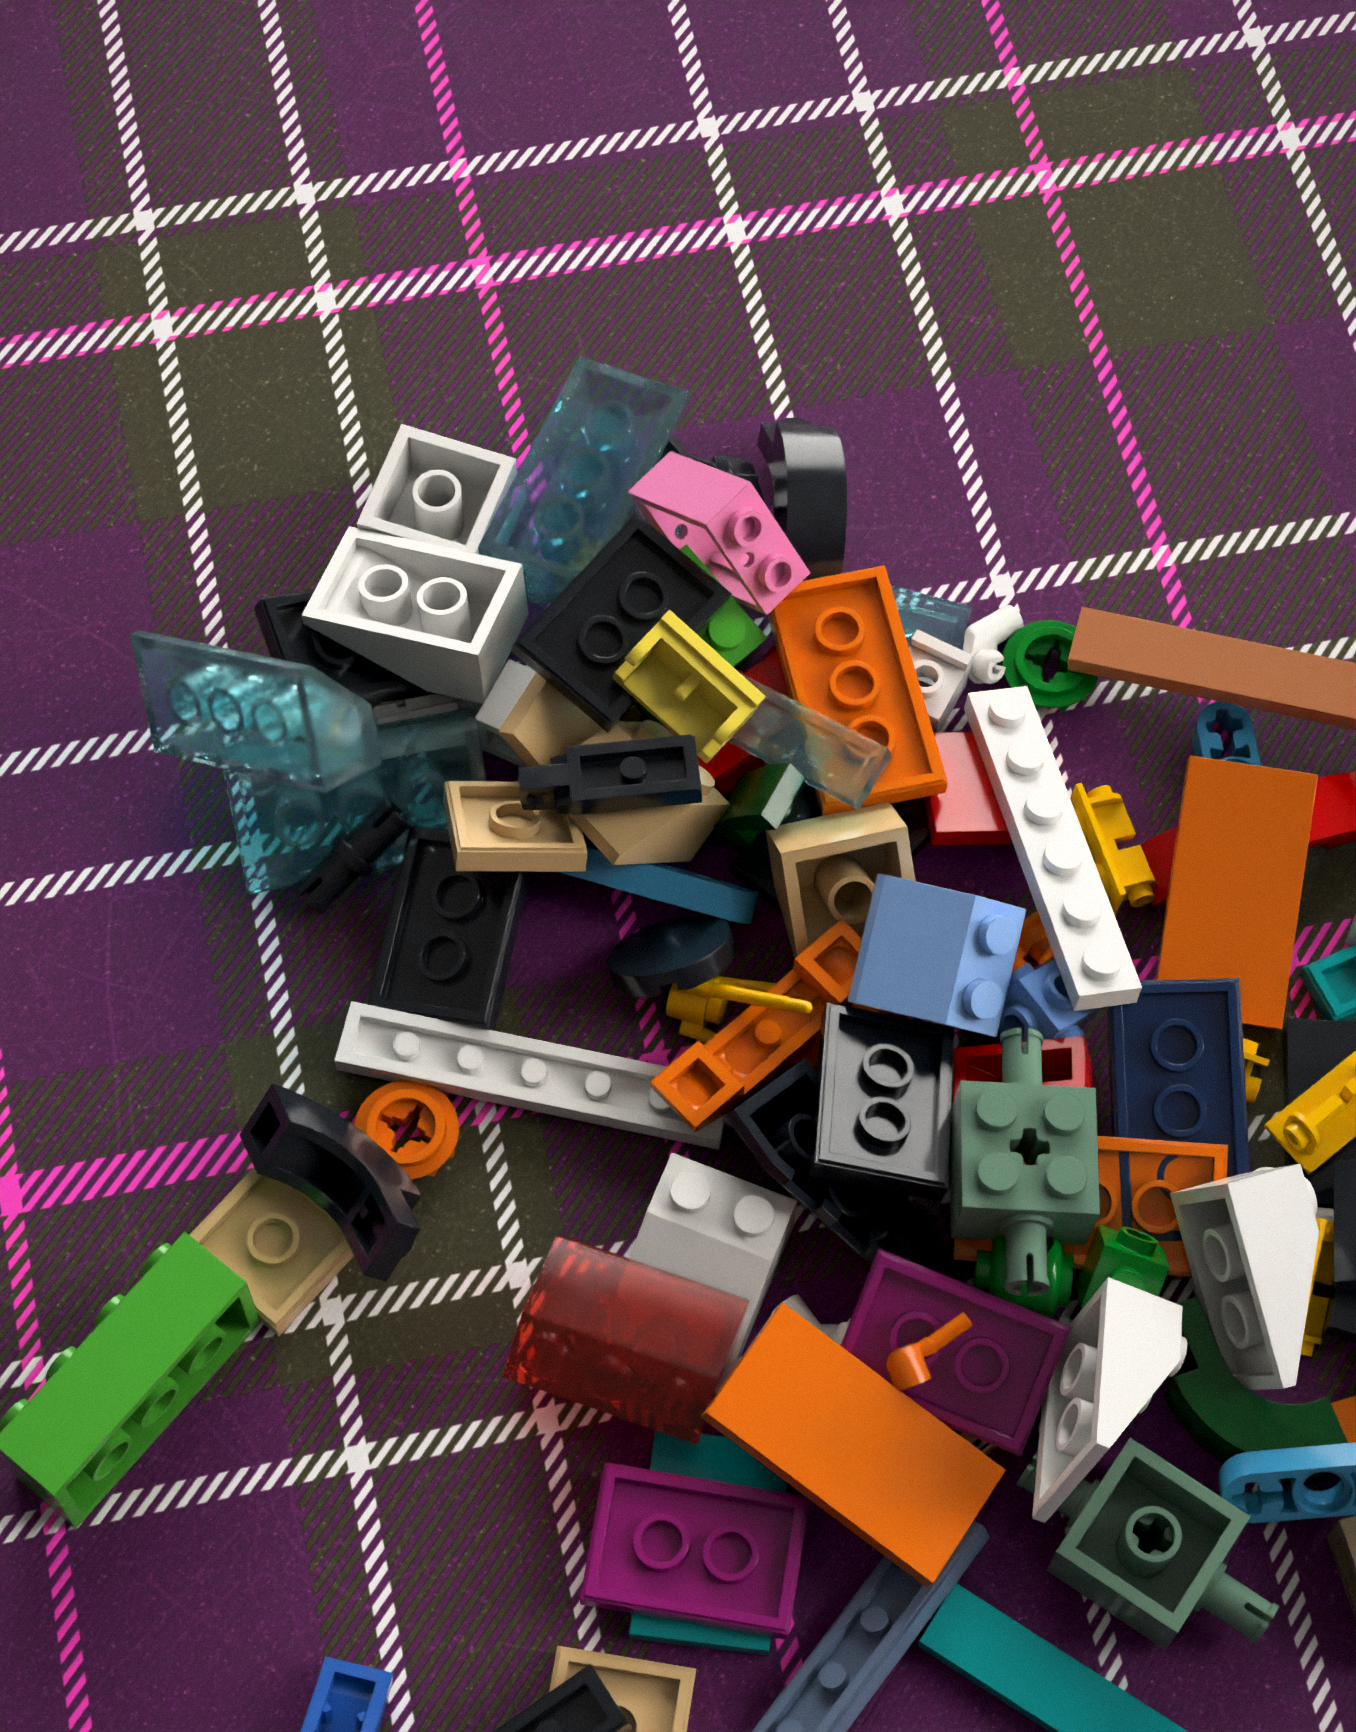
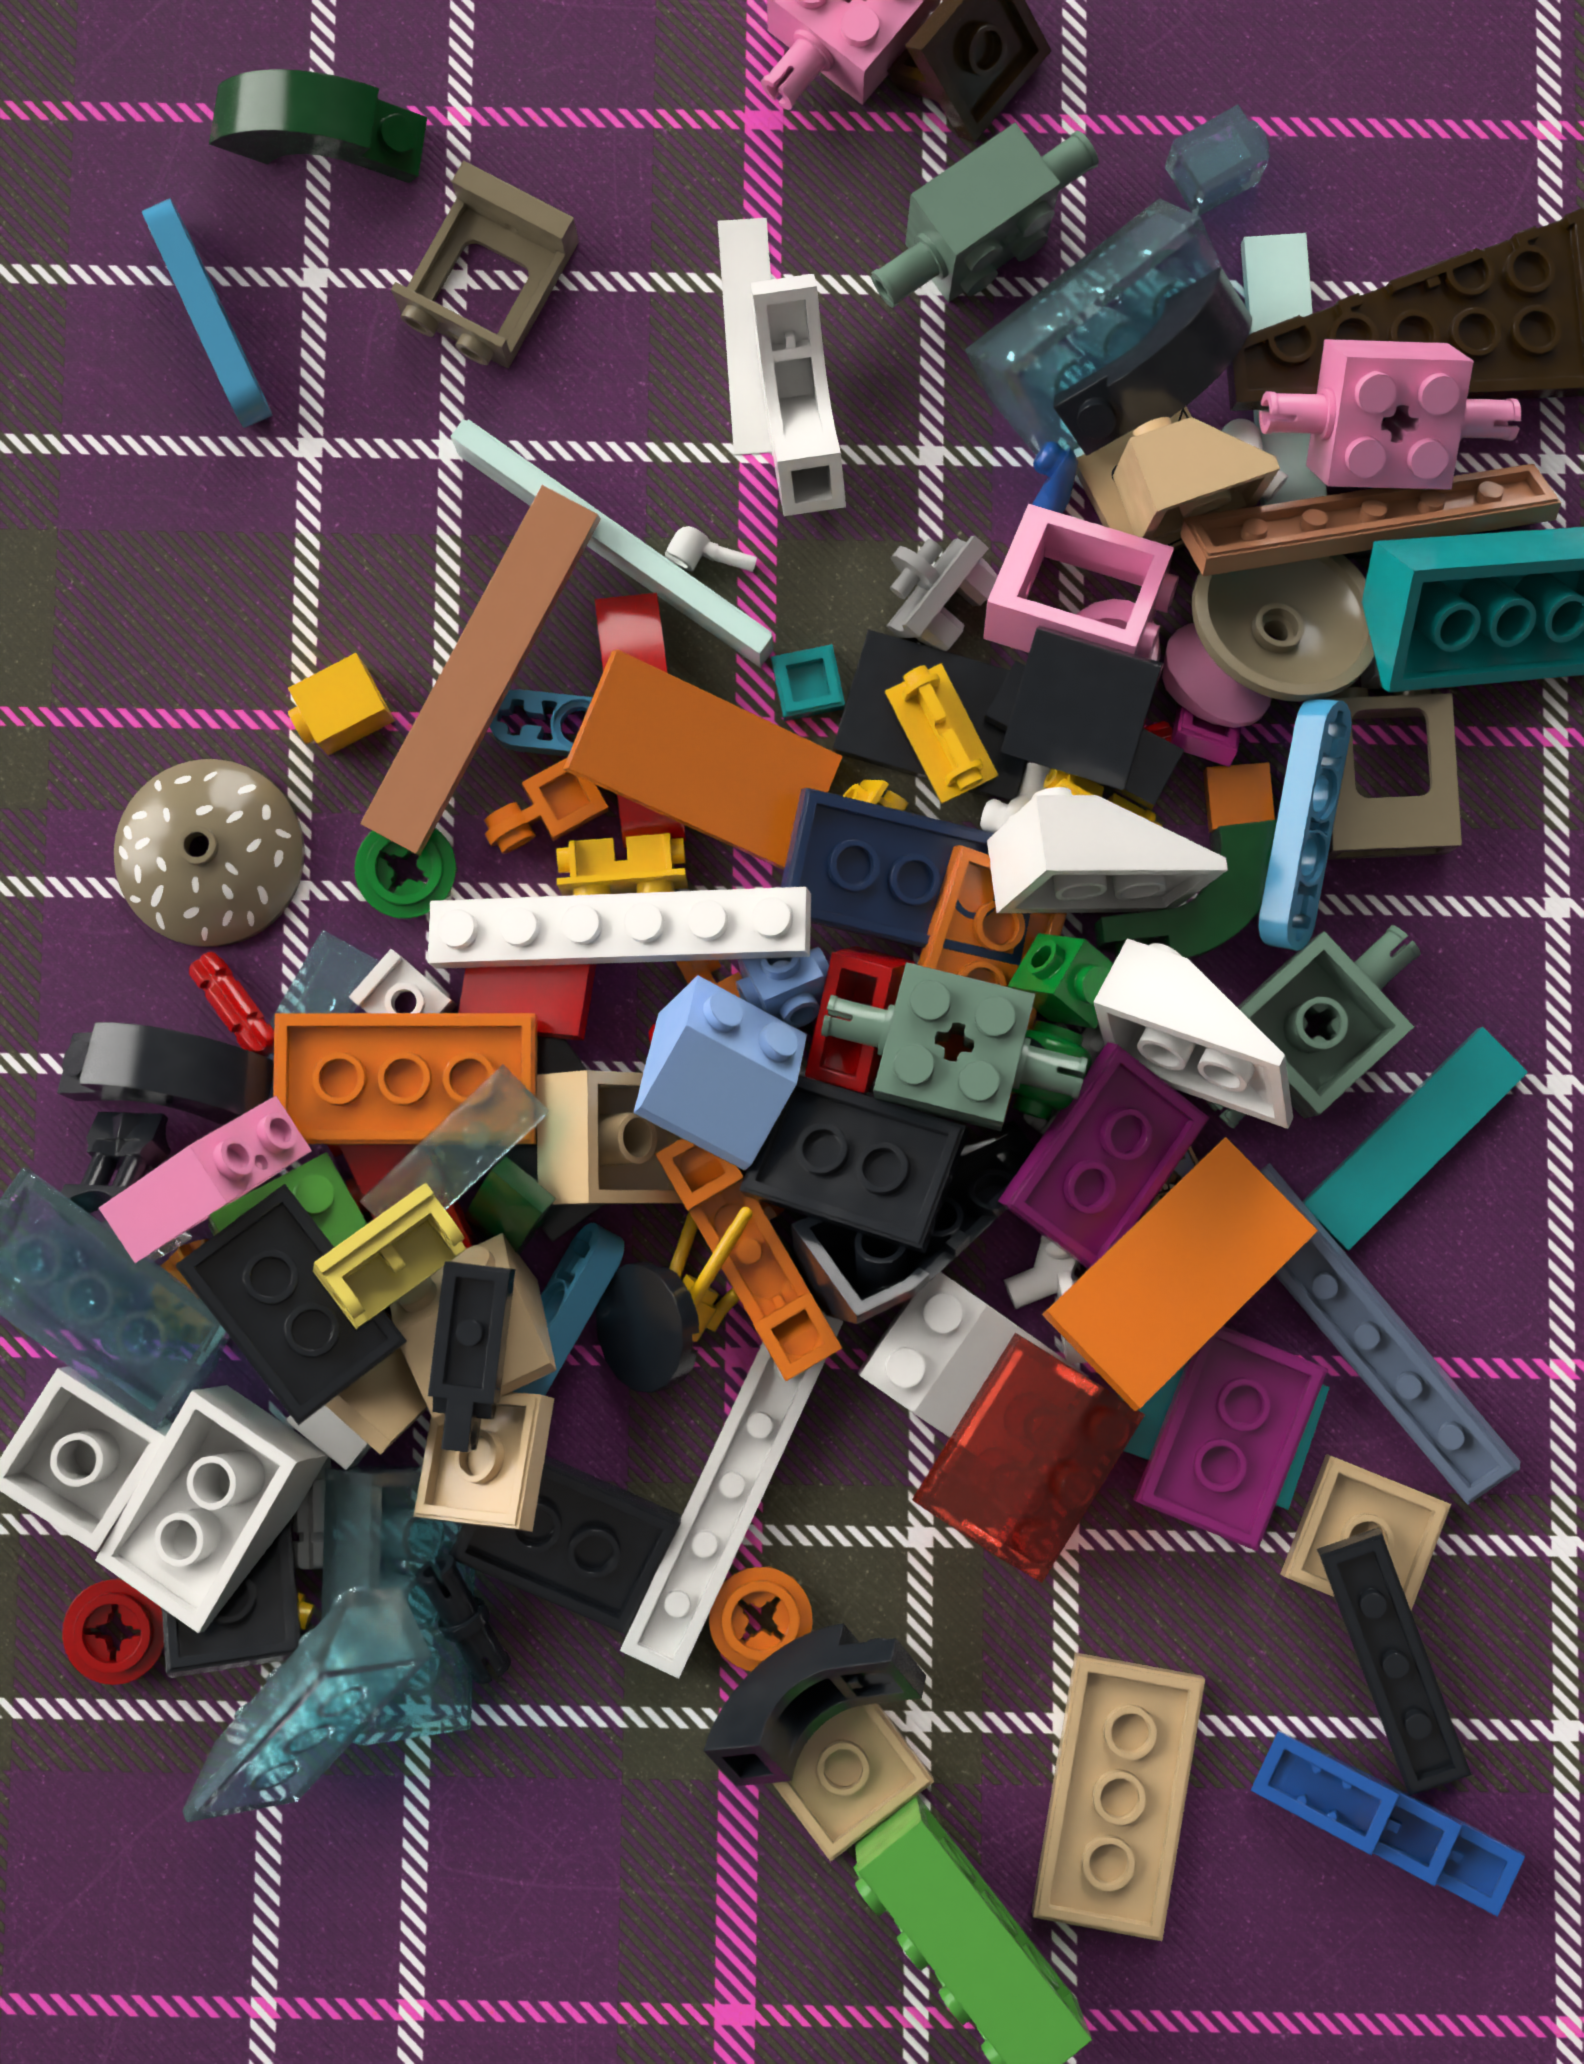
camera: 75 degrees left, 20 degrees up
(258, 560) = (93, 1652): none -> red gear
(293, 1523) = (1118, 1796): none -> tan tile
(885, 540) = (233, 1004): none -> red axle
(908, 1364) = (1112, 1202): orange hand -> none
(982, 641) = (366, 931): white arm -> none
(1010, 530) = (242, 877): none -> dark tan dish
(1153, 780) = (557, 800): none -> orange plate
(1187, 575) = (338, 705): none -> yellow brick

